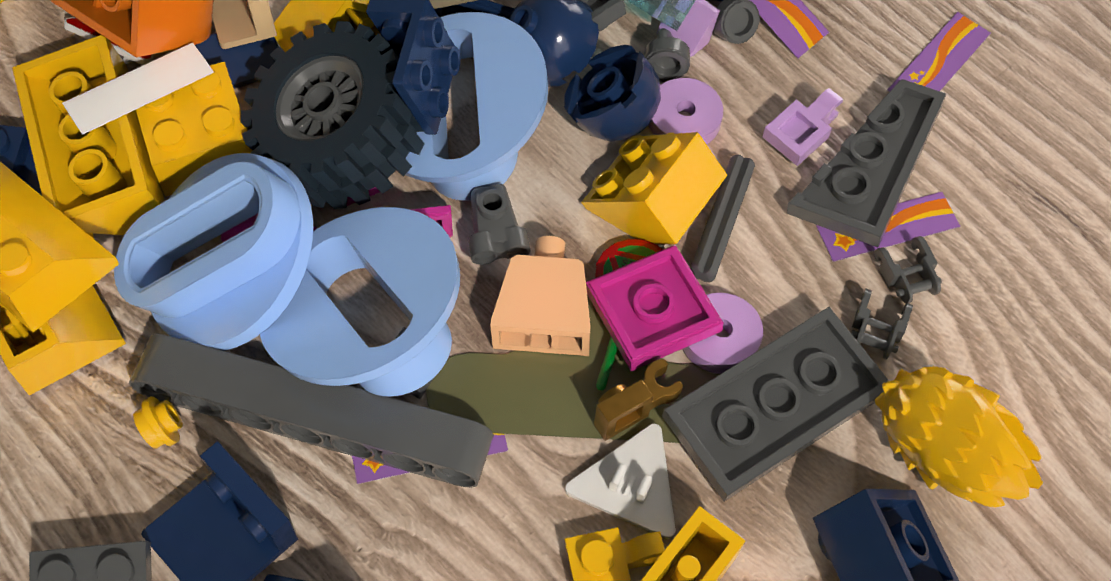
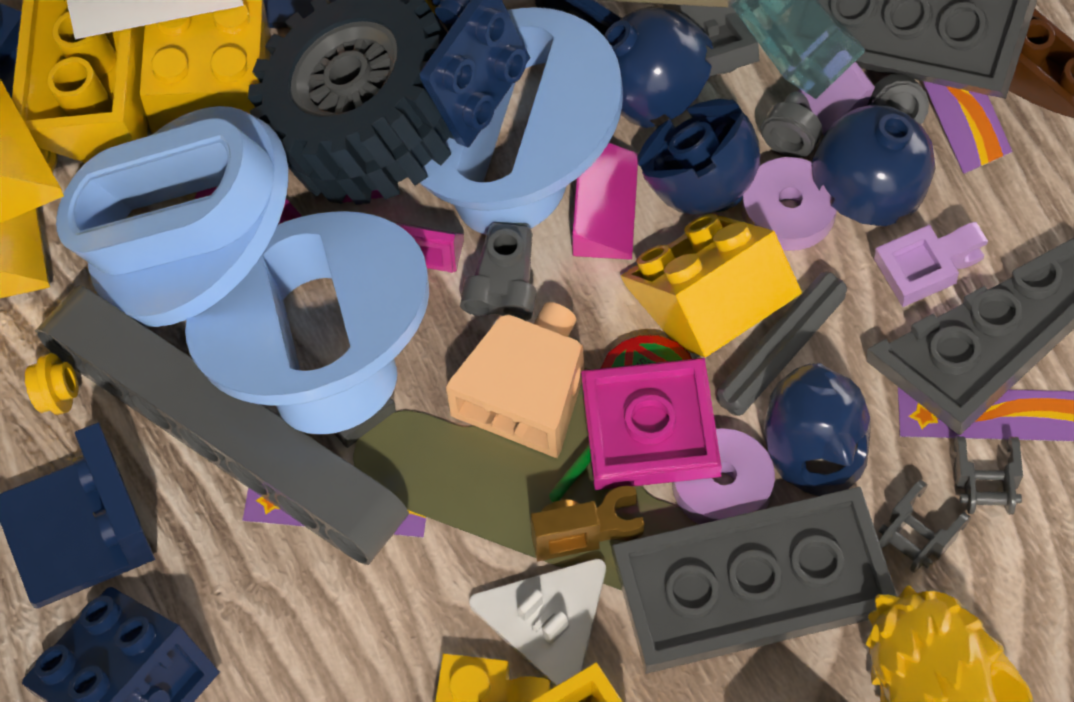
camera: 25 degrees right, 0 degrees up
(552, 156) = (606, 206): none -> dark pink slope
(740, 66) = (875, 164): none -> dark blue cylinder
(778, 265) = (817, 417): none -> dark blue piece

